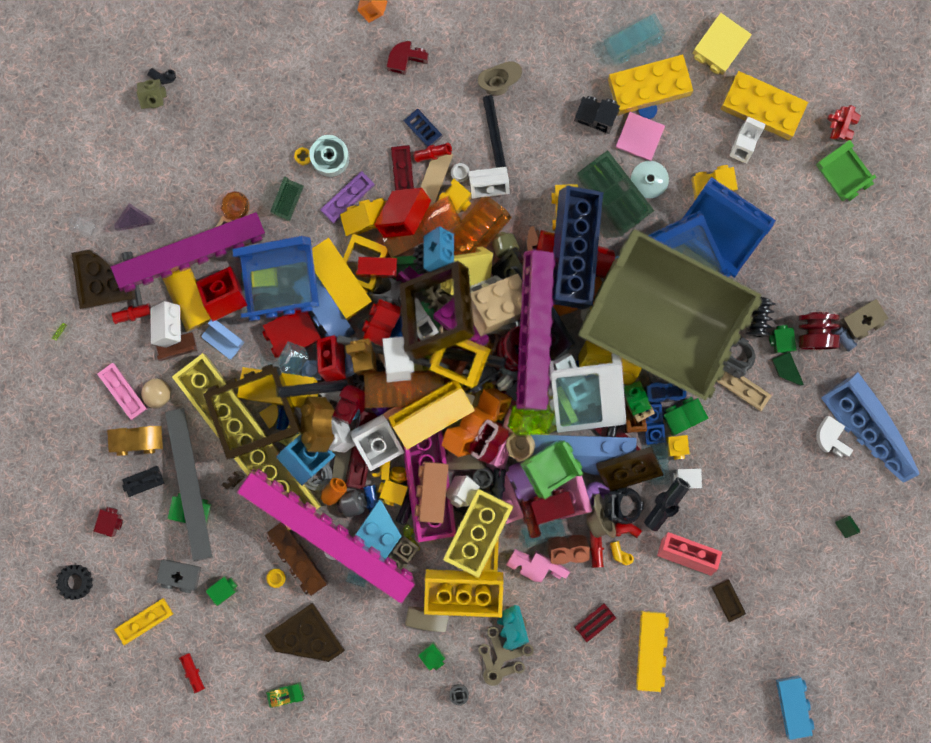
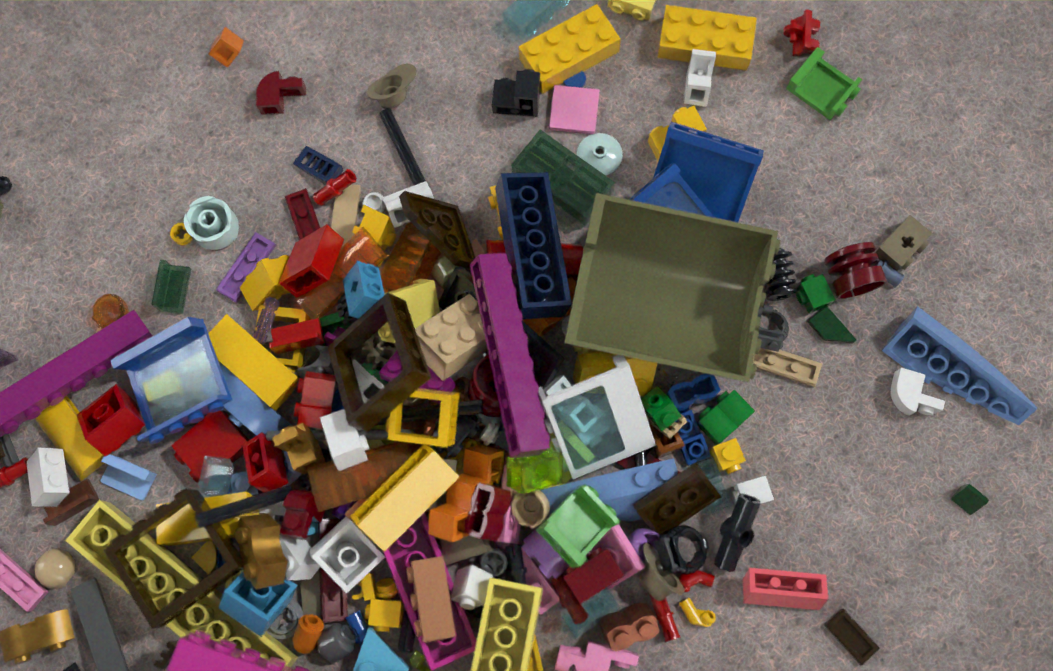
camera: 15 degrees left, 10 degrees down
(356, 247) = (265, 320): none -> axle
(509, 210) = (440, 225): none -> dark brown plate

